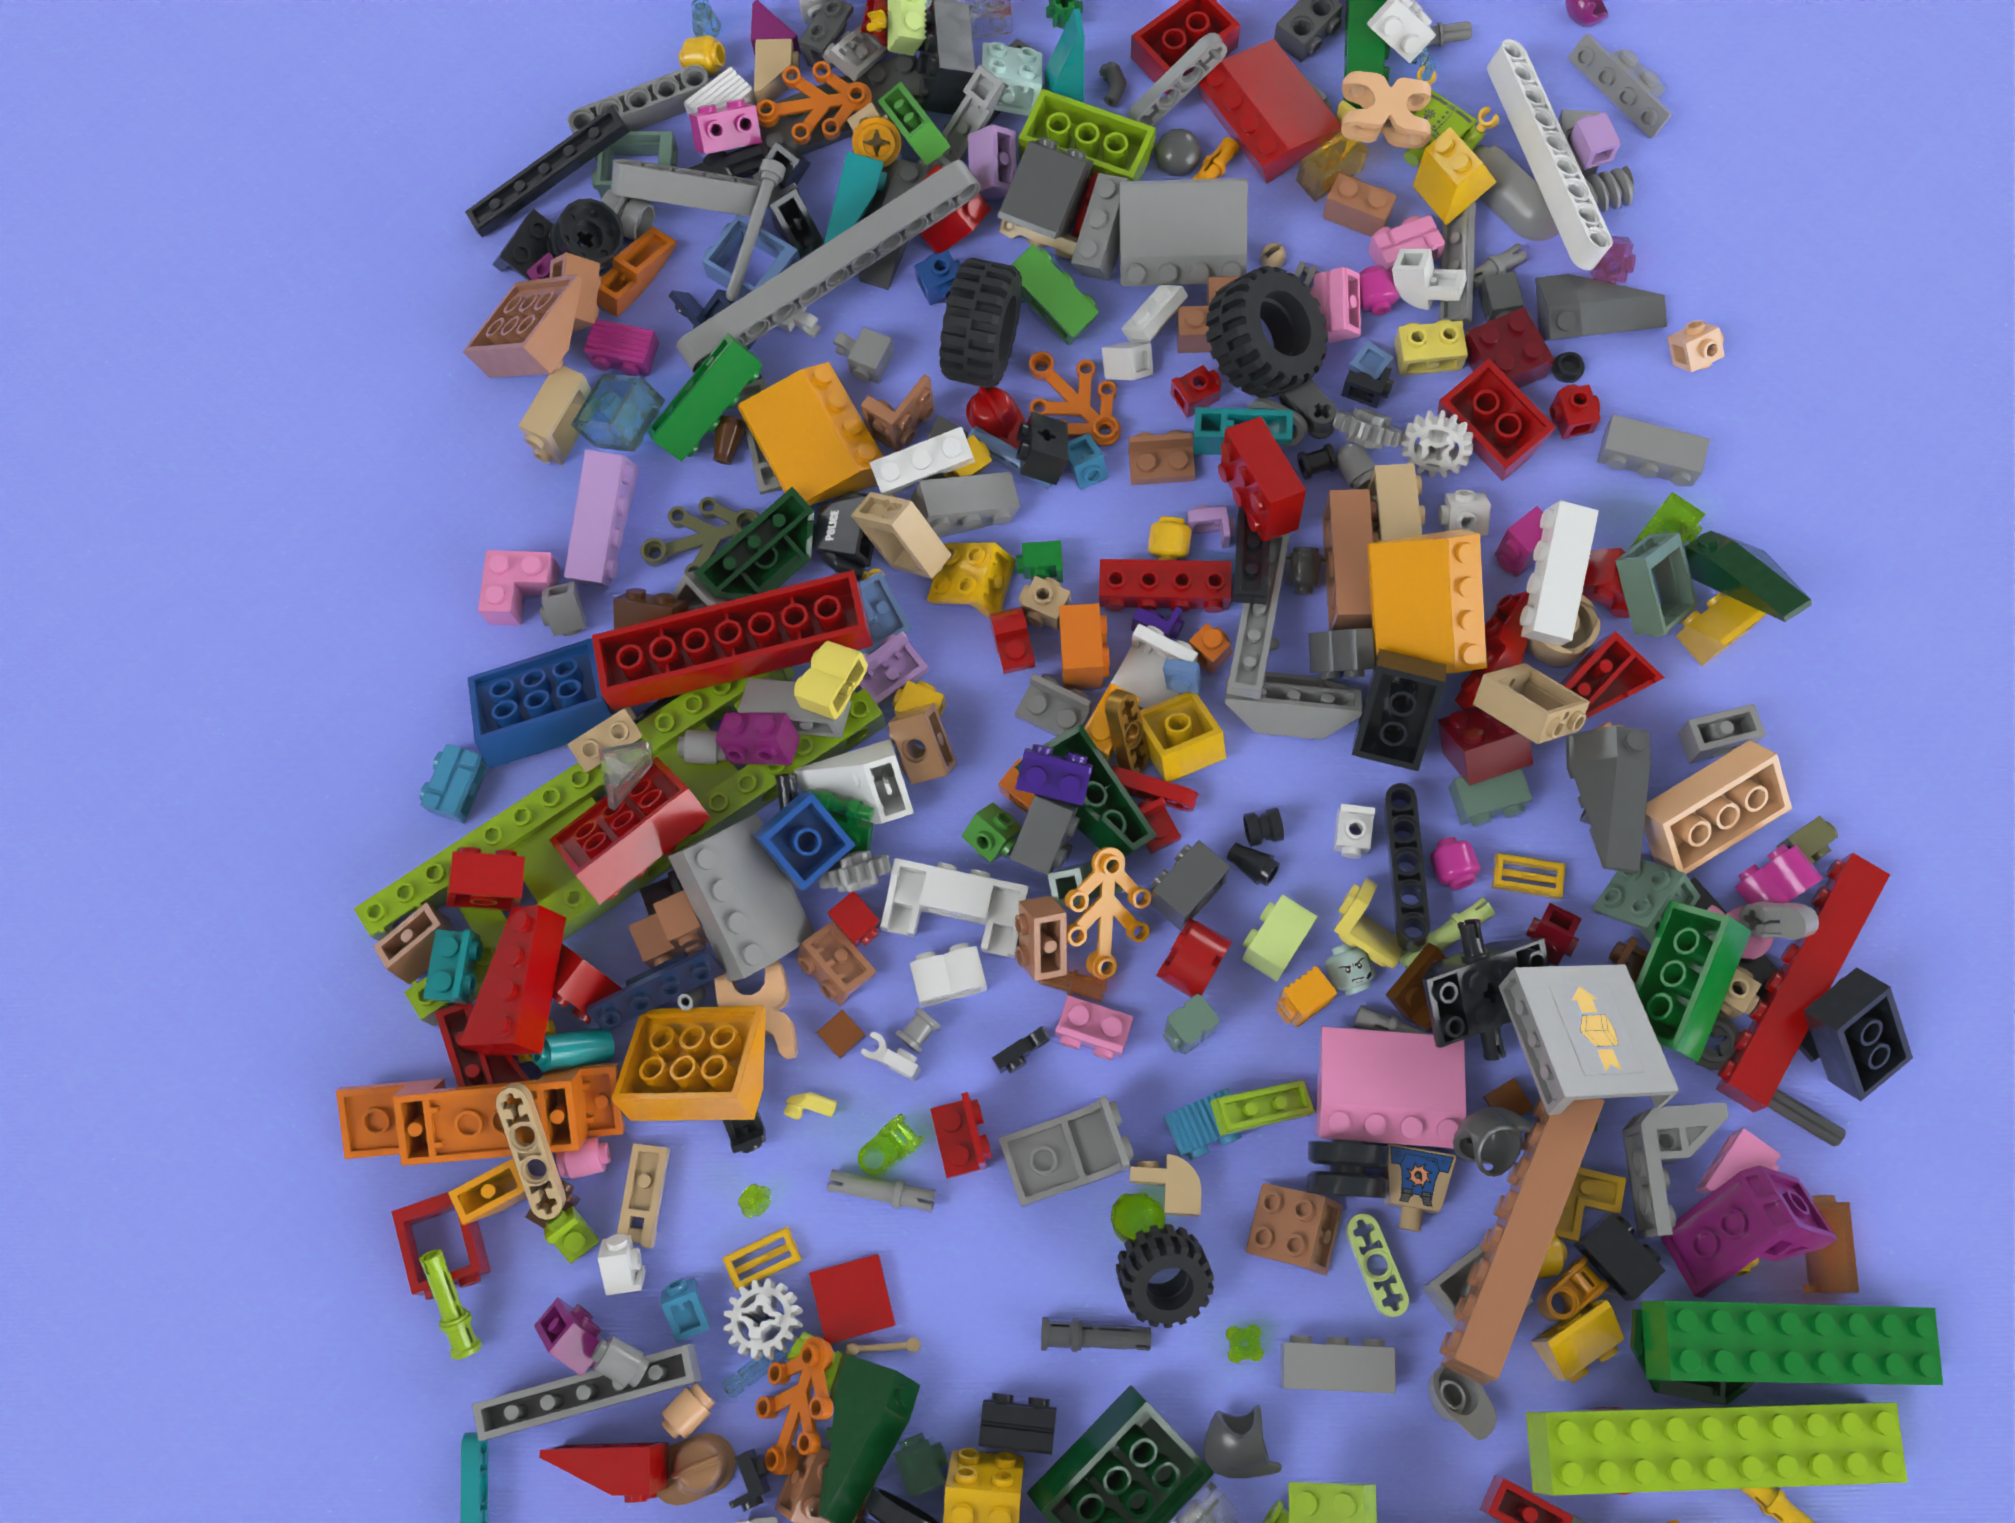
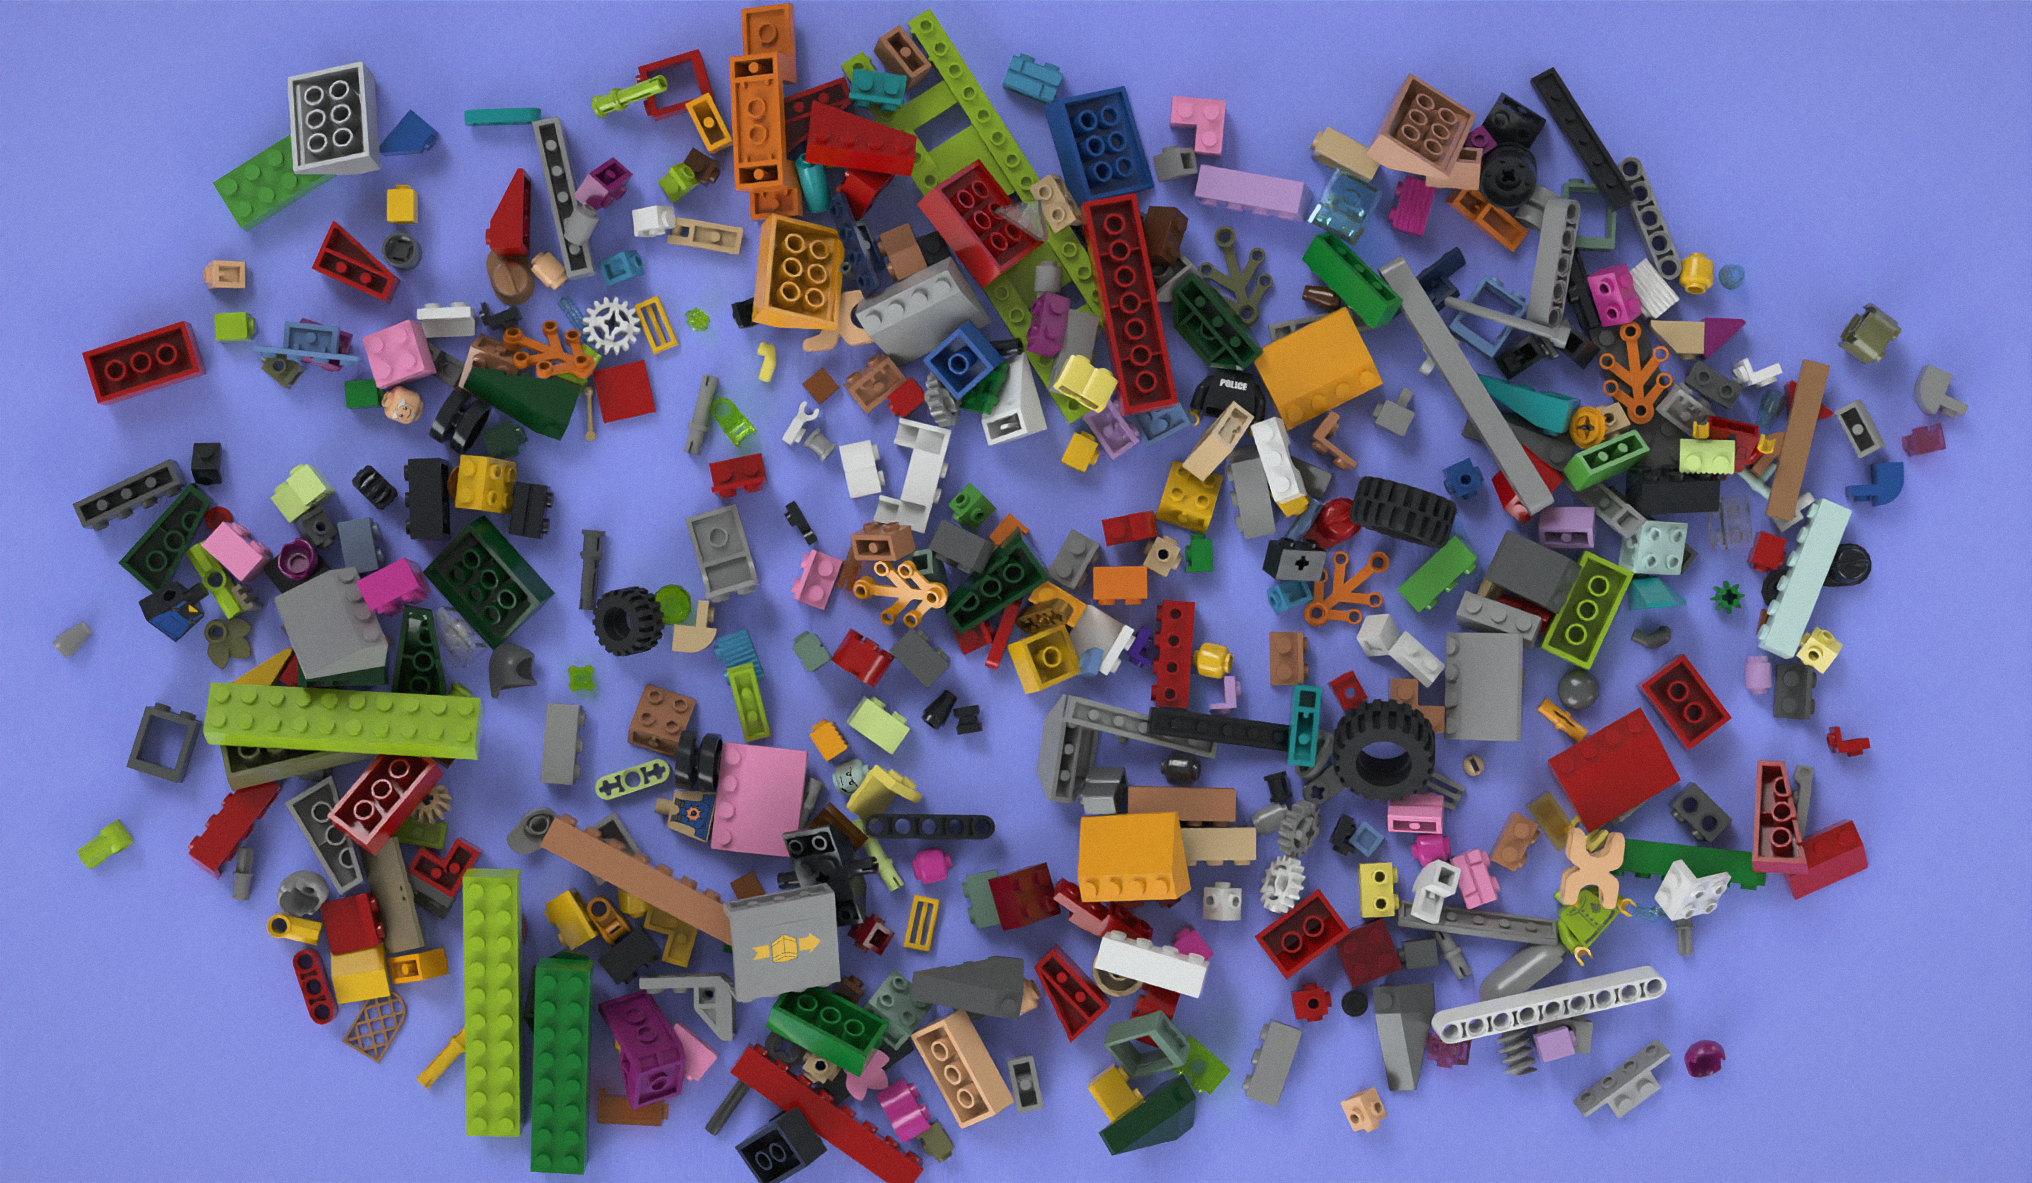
camera: 85 degrees right, 15 degrees up
(485, 879) = (940, 113): red brick -> none
(525, 1152) = (735, 158): tan beam -> none
(586, 1161) = (732, 198): bright pink brick -> none
(926, 726) = (1043, 454): medium nougat brick -> none
(1054, 775) = (1002, 556): dark purple bracket -> none
(1208, 49) = (1635, 691): light grey beam -> none
(1211, 646) = (1118, 687): orange brick -> none
(1261, 479) = (1249, 734): red brick -> none
(1358, 817) = (971, 789): white brick -> none
(1399, 710) = (1051, 830): black brick -> none
(1451, 176) = (1531, 921): yellow slope -> none
(1491, 1138) = (715, 867): dark grey piece -> none
(1531, 703) = (1058, 943): tan window -> none
(1795, 920) = (871, 1103): light grey piece -> none

